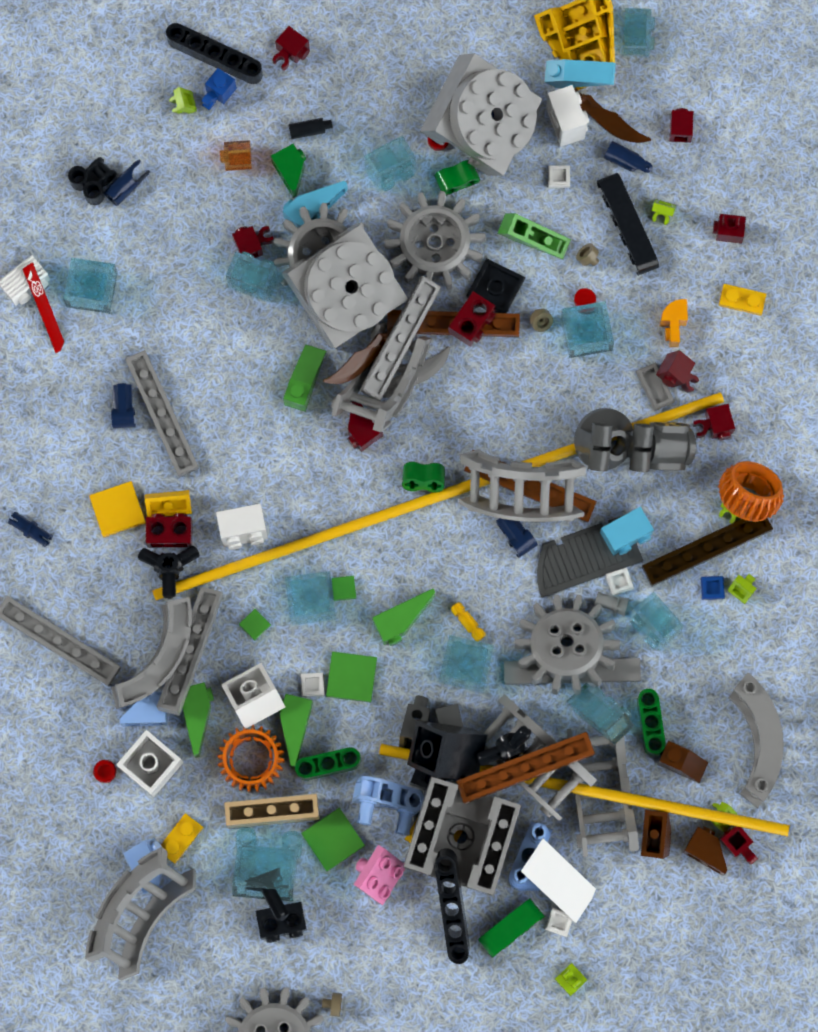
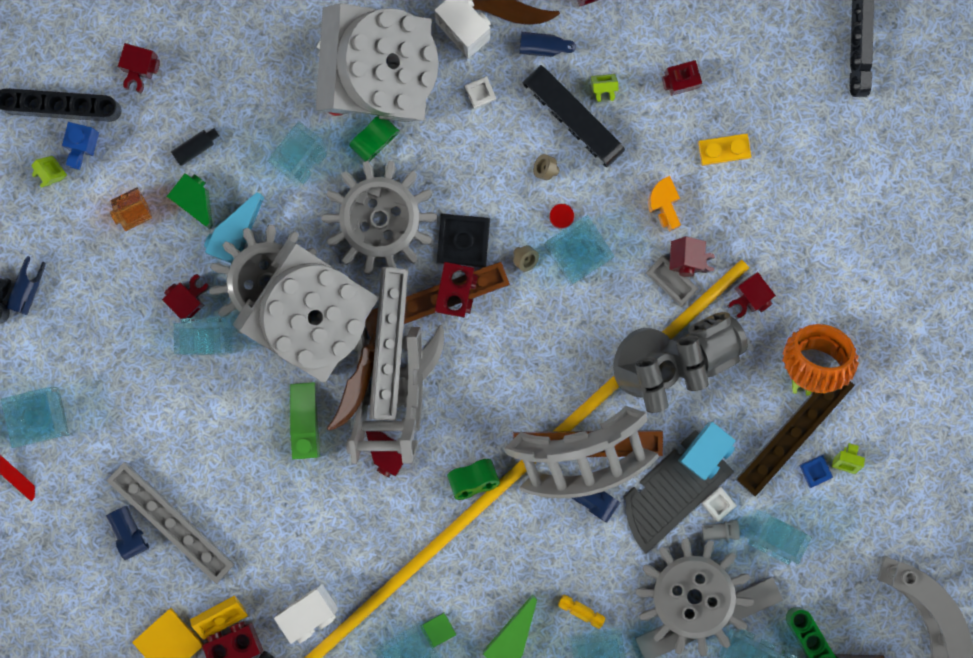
camera: 30 degrees left, 10 degrees up
(533, 235) = (480, 169): bright green slope -> none

